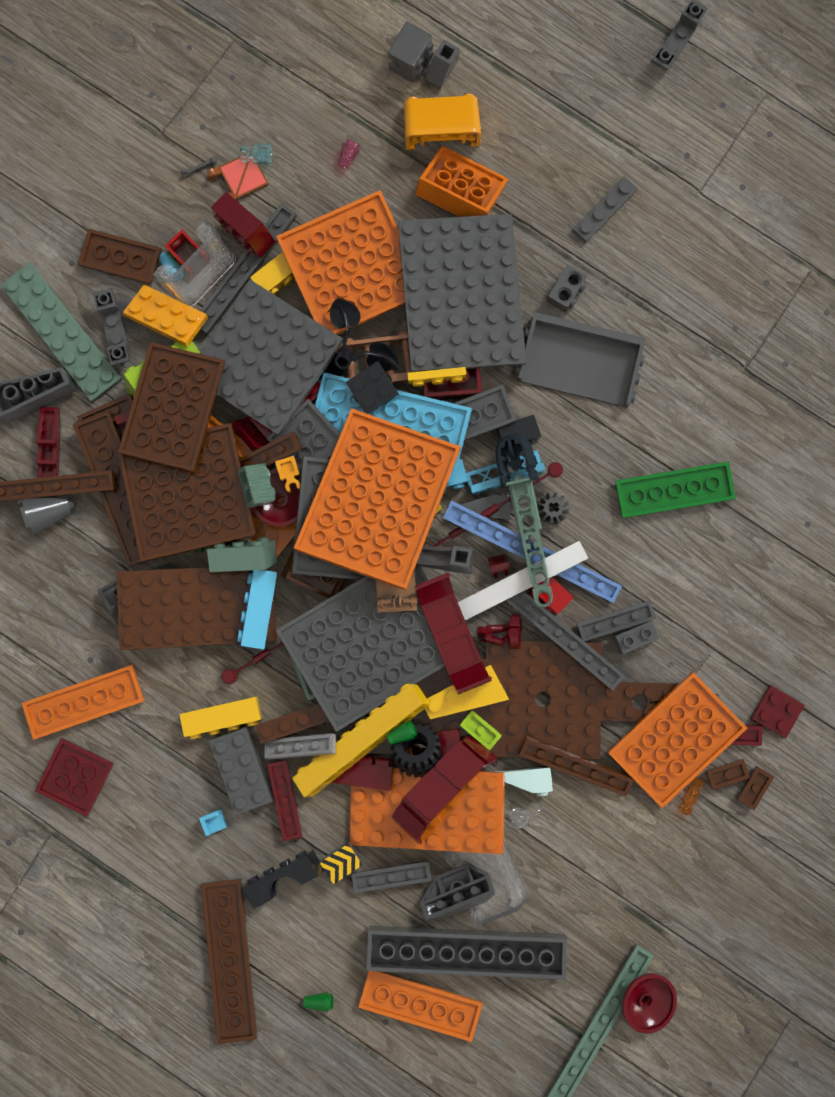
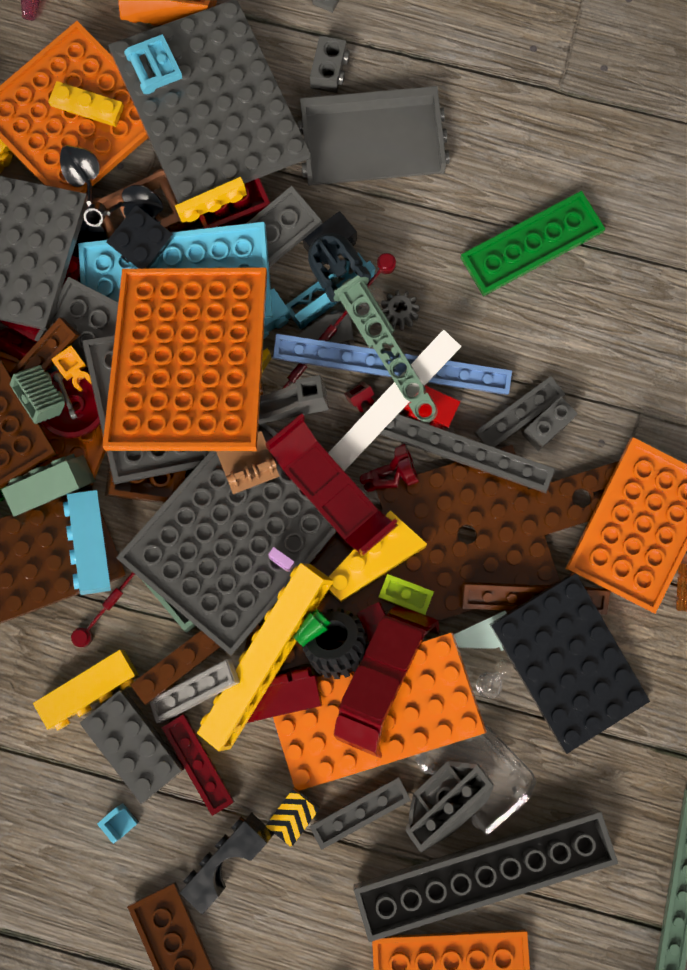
camera: 20 degrees left, 5 degrees down
(275, 476) = (58, 377): none -> dark grey hinge
(365, 263) = (86, 104): none -> yellow plate
(396, 675) = (281, 559): none -> lavender tile
(435, 251) = (160, 60): none -> medium azure plate
(584, 822) = (569, 662): none -> black plate

